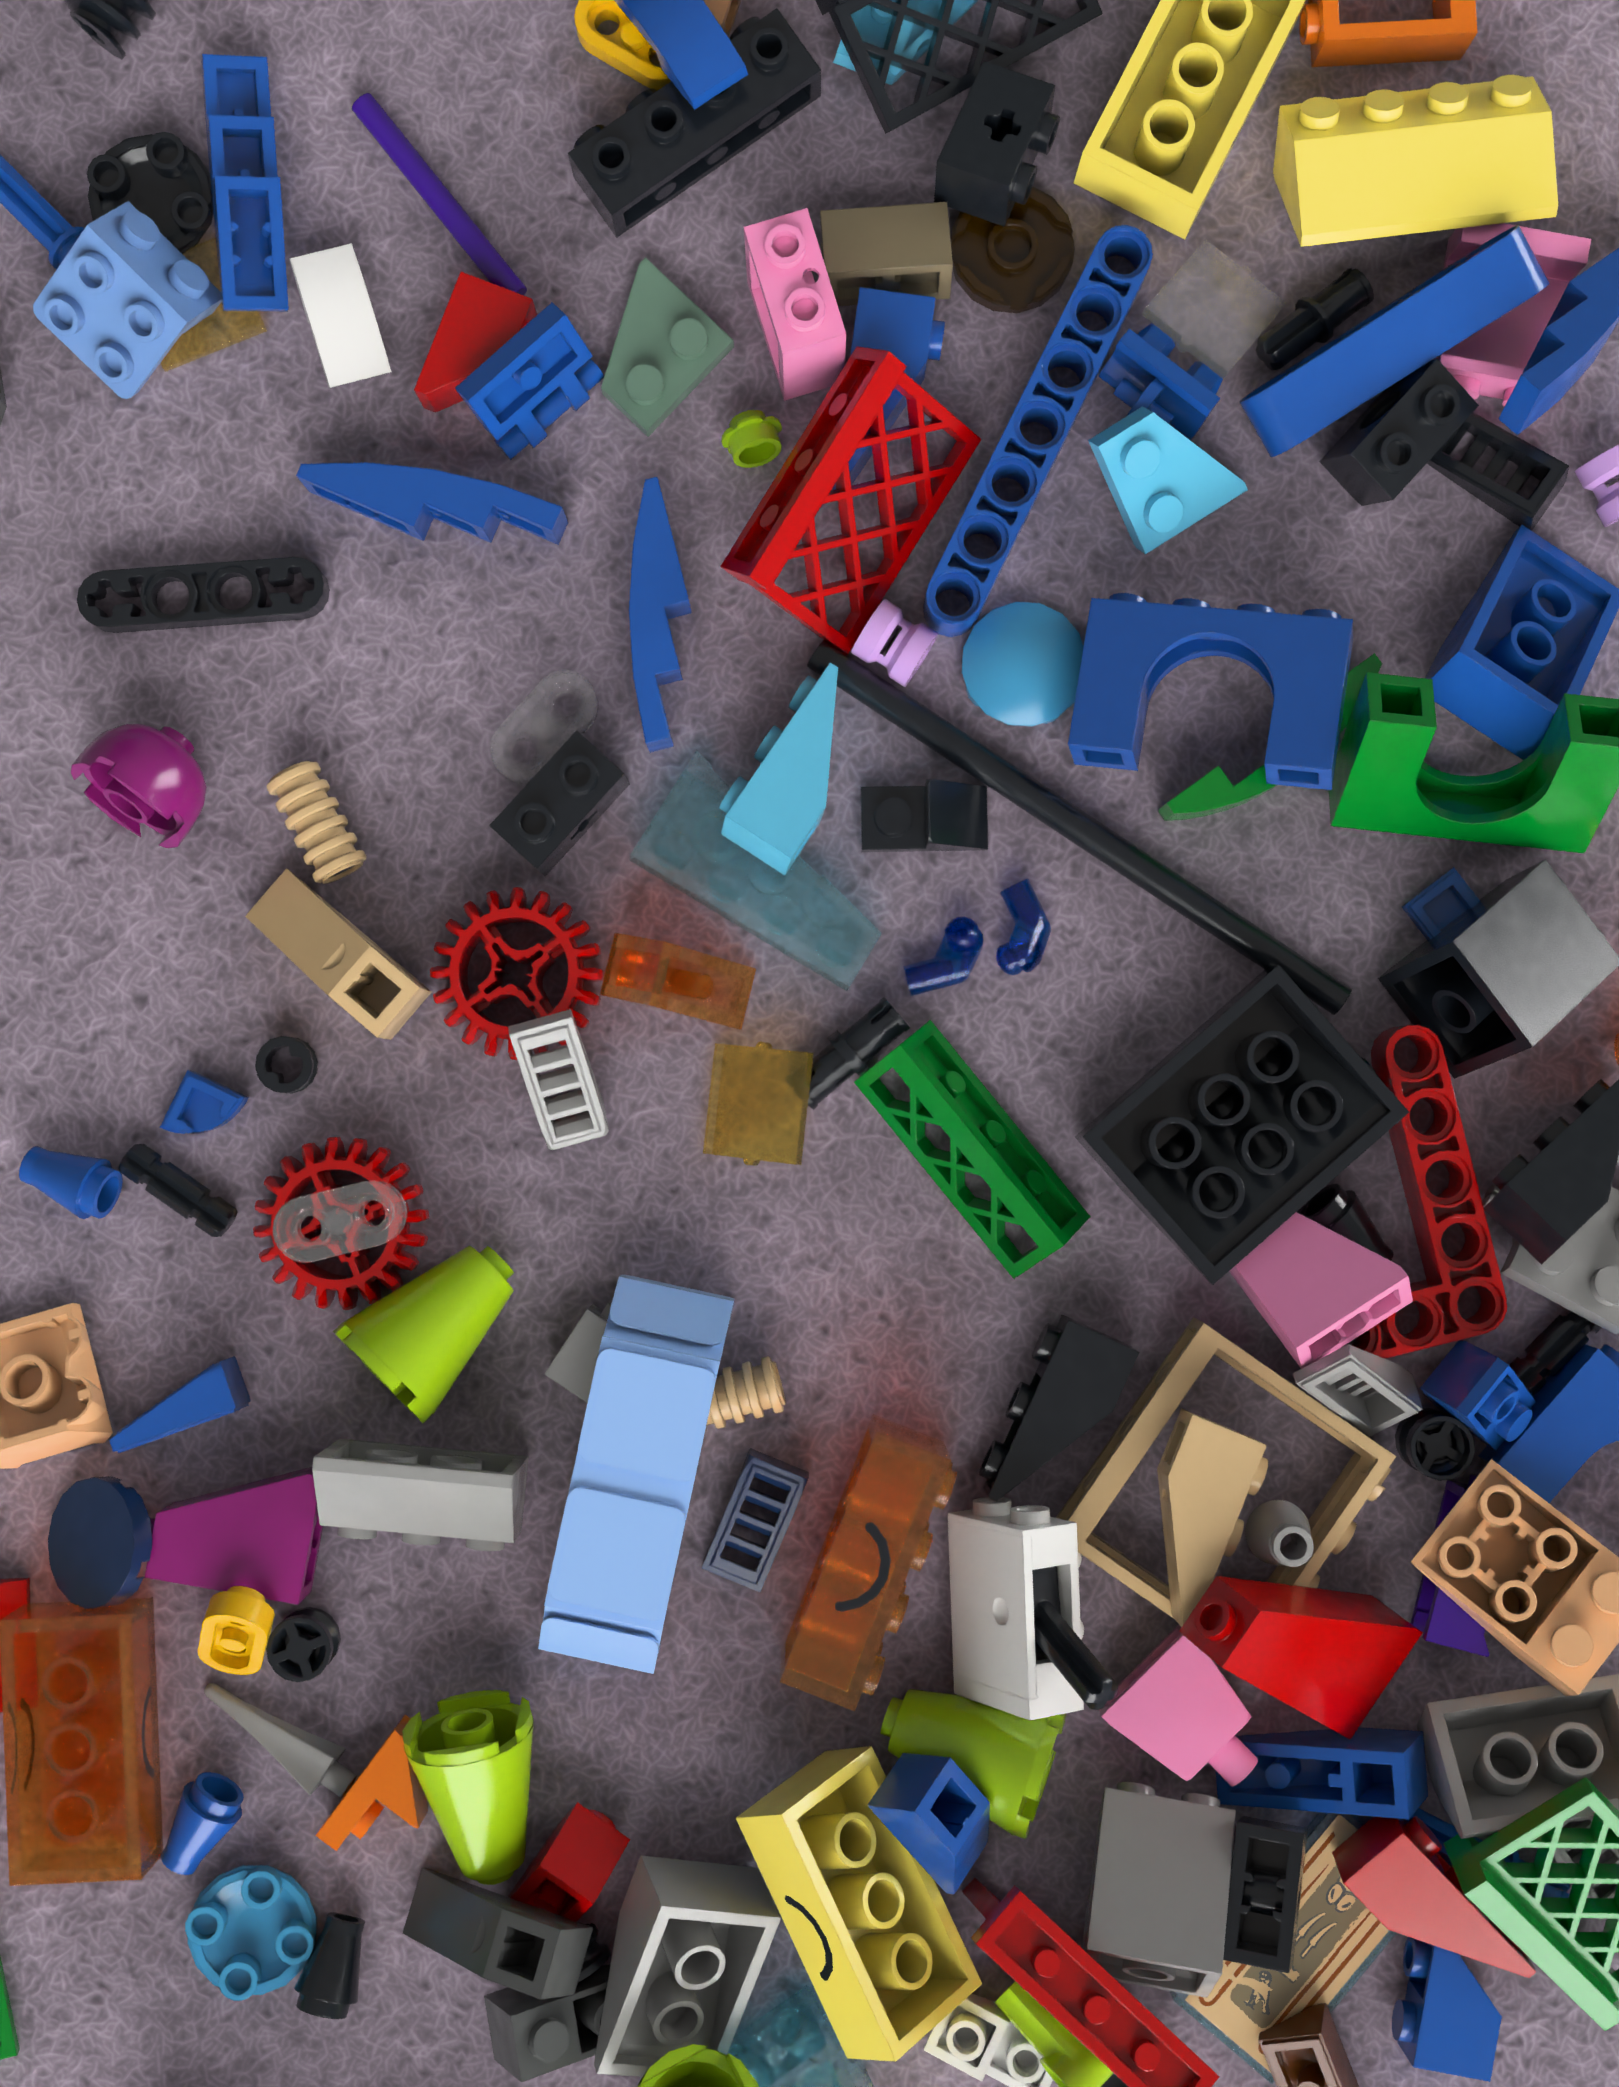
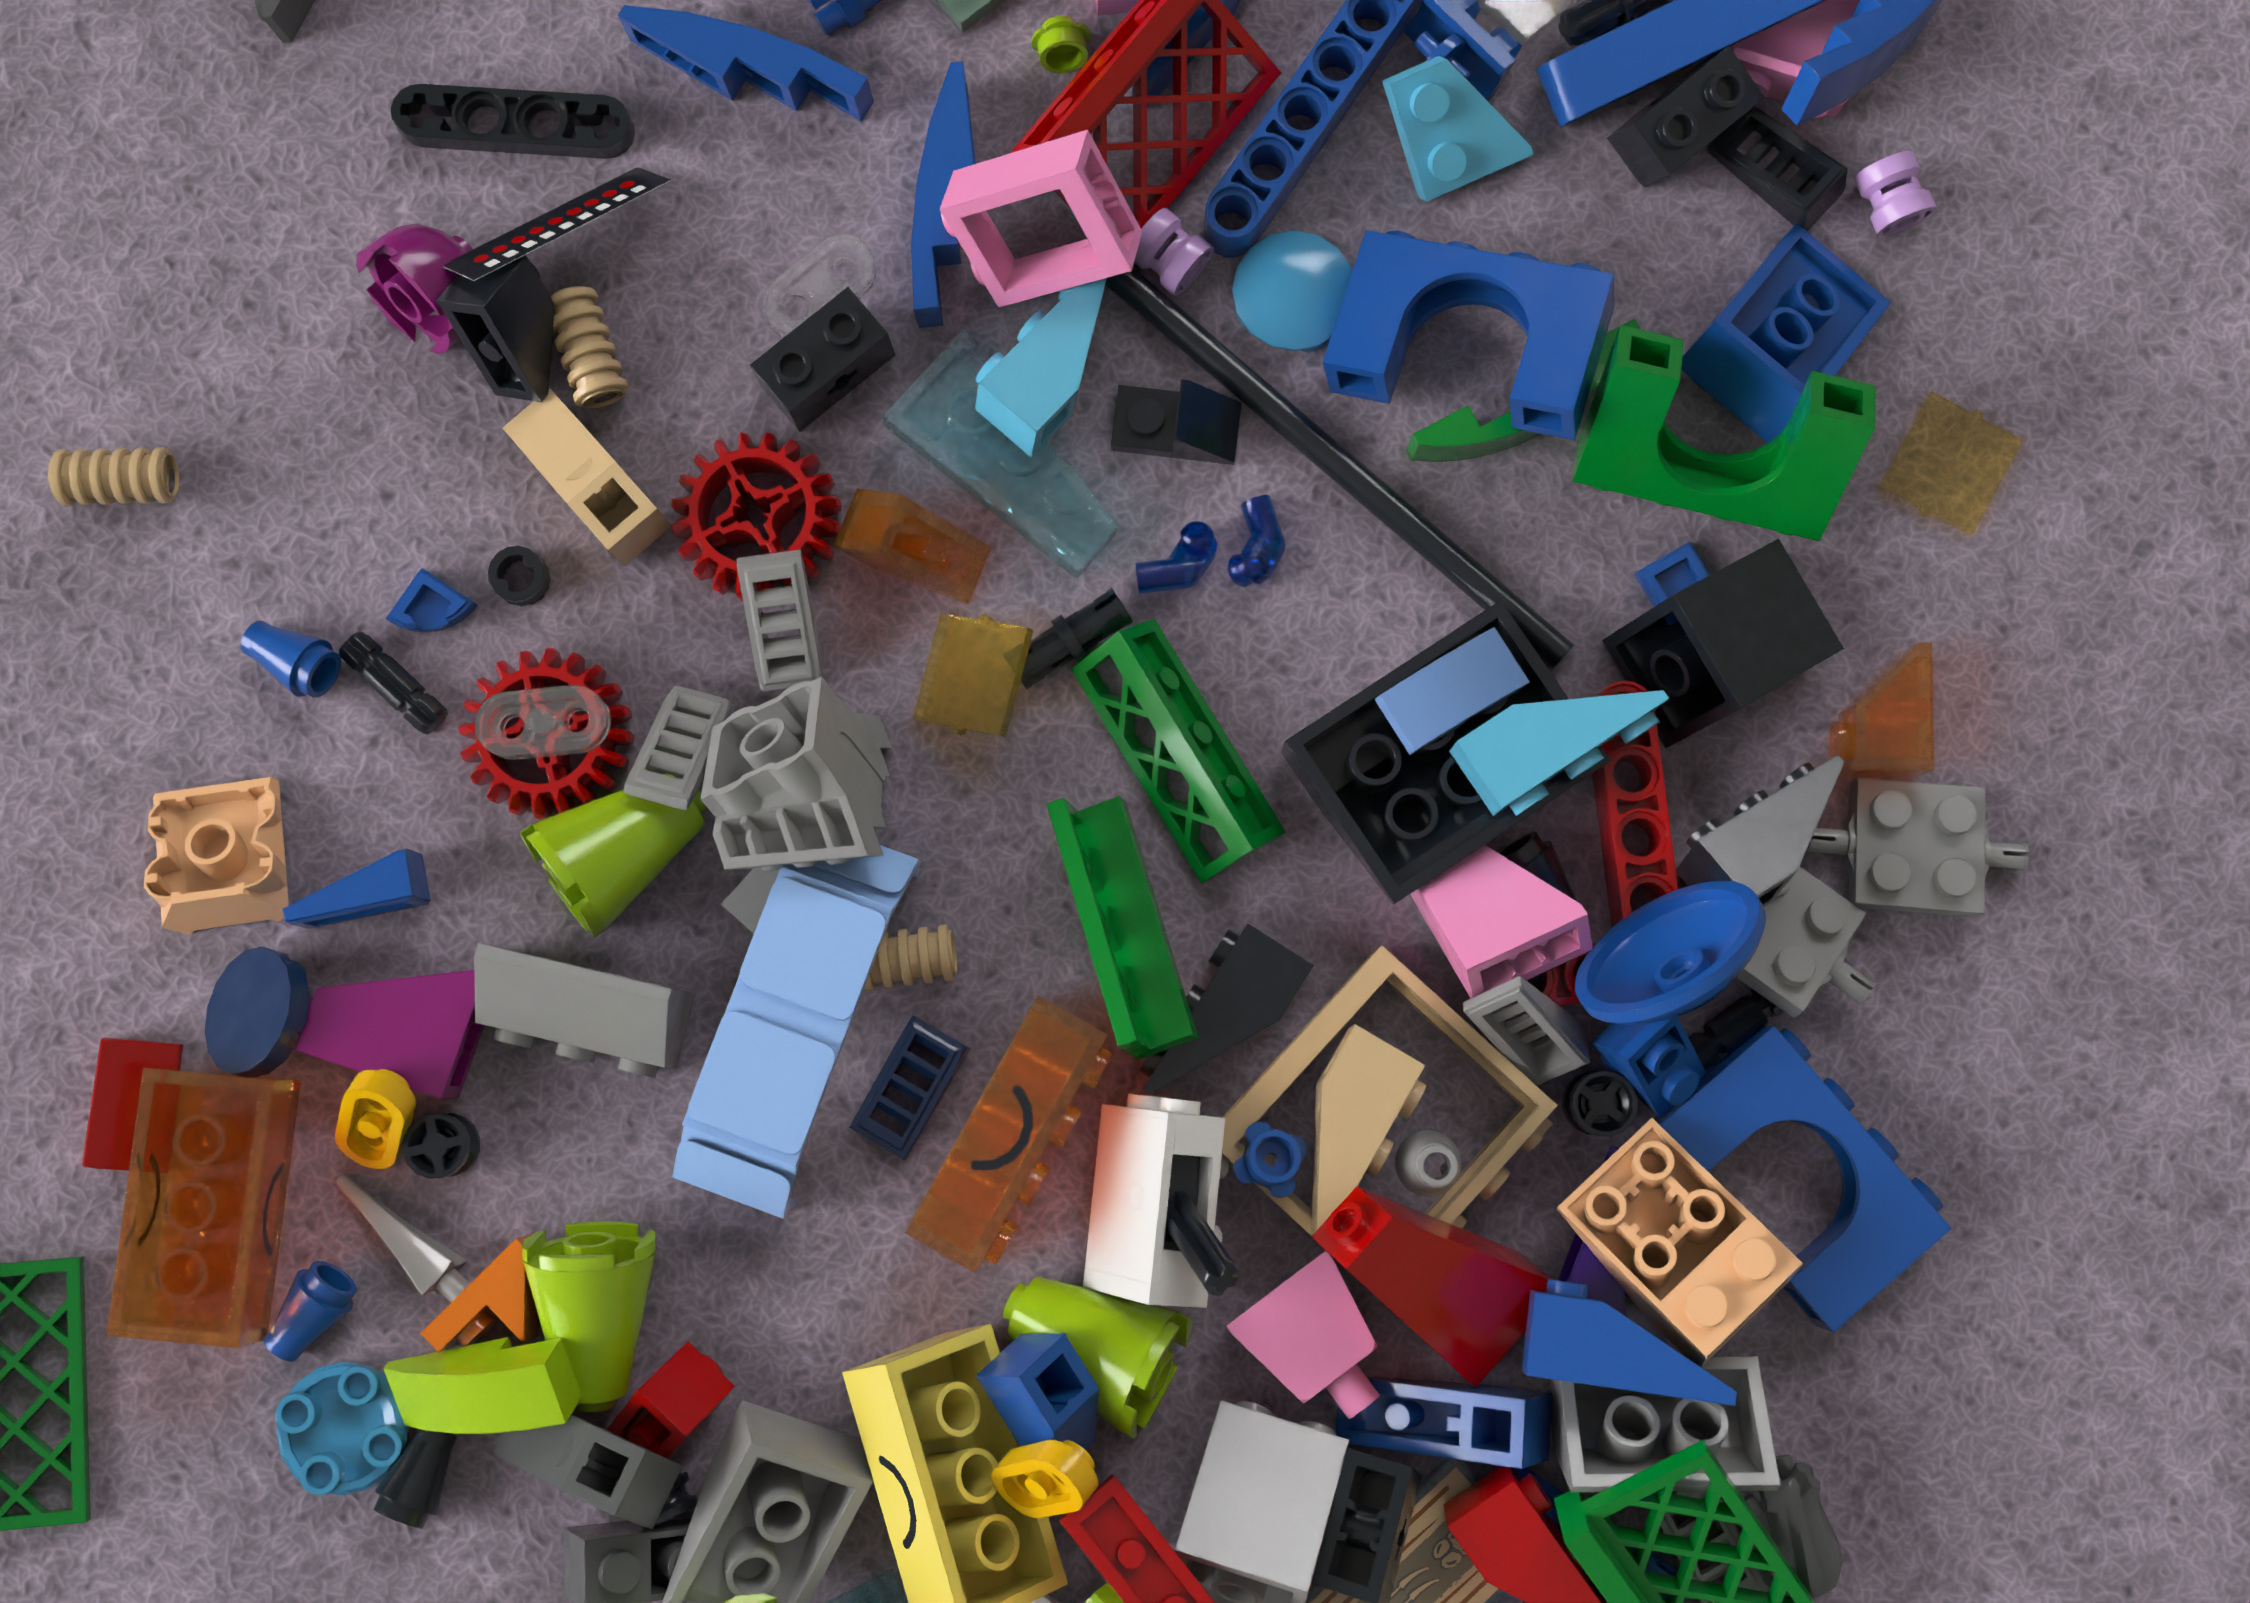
camera: 15 degrees right, 5 degrees down
(231, 812) = (505, 327): none -> black slope
(268, 704) = (555, 223): none -> black sticker
(389, 1879) = (486, 1387): none -> lime slope
(485, 1186) = (677, 746): none -> light grey slope
(603, 1248) = (796, 781): none -> light grey slope
(772, 588) = (1090, 190): none -> bright pink window
(945, 1339) = (1123, 927): none -> green fence
(953, 1899) = (1046, 1478): none -> yellow plate
(1141, 1545) = (1288, 1153): none -> blue plate
(1244, 1067) = (1451, 690): none -> medium blue slope
(1331, 1114) = (1535, 741): none -> medium azure slope
(1463, 1693) = (1598, 1346): none -> blue slope
(1496, 1306) = (1672, 954): none -> blue dish

